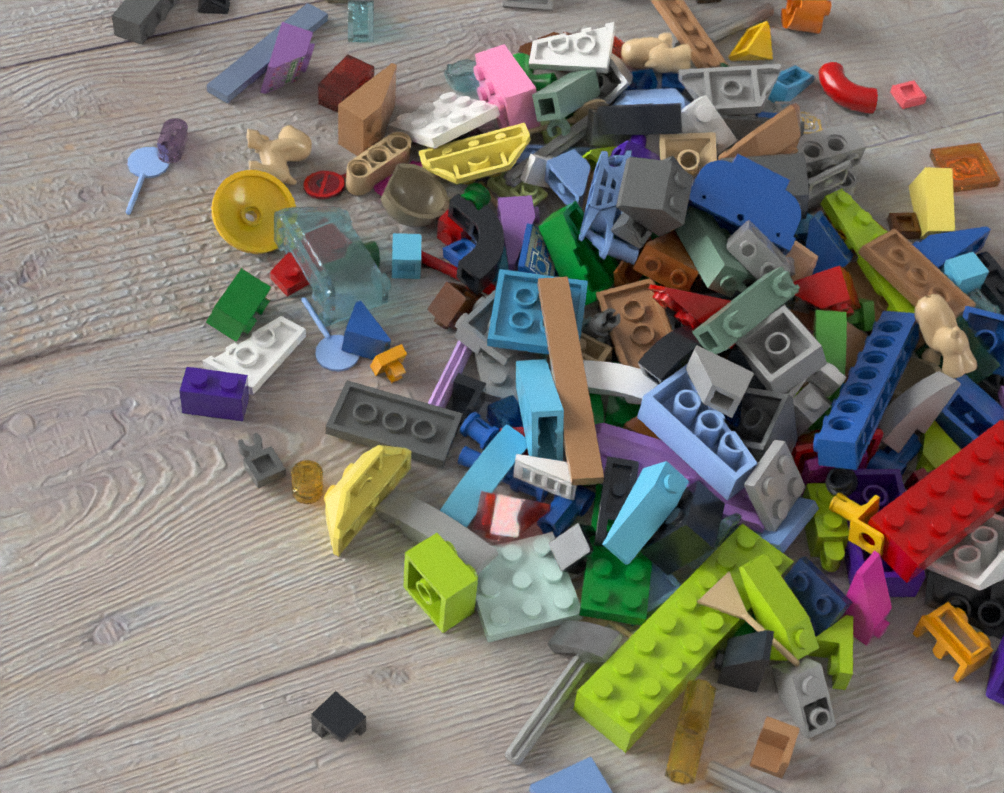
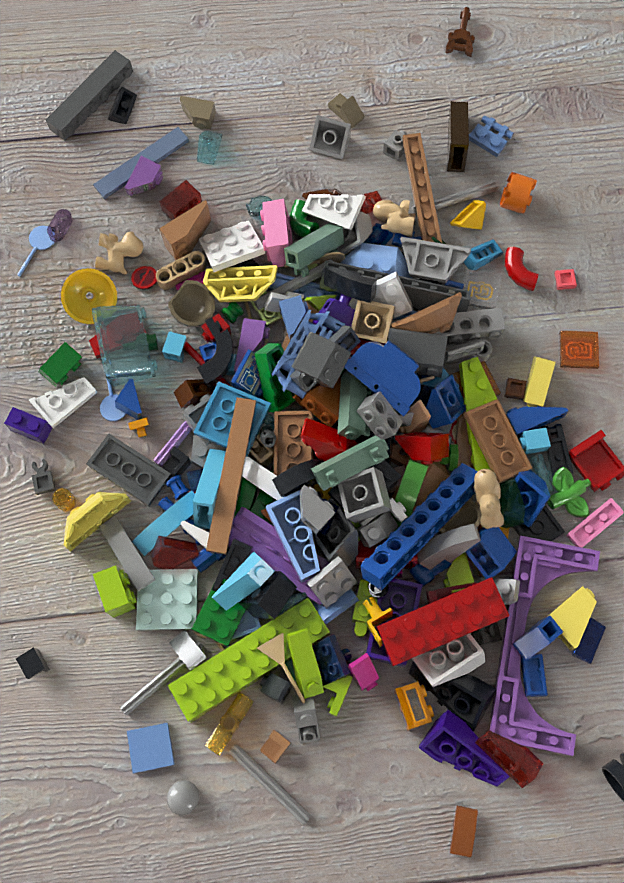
camera: 25 degrees right, 20 degrees up
(572, 548) = (200, 587): panel -> none

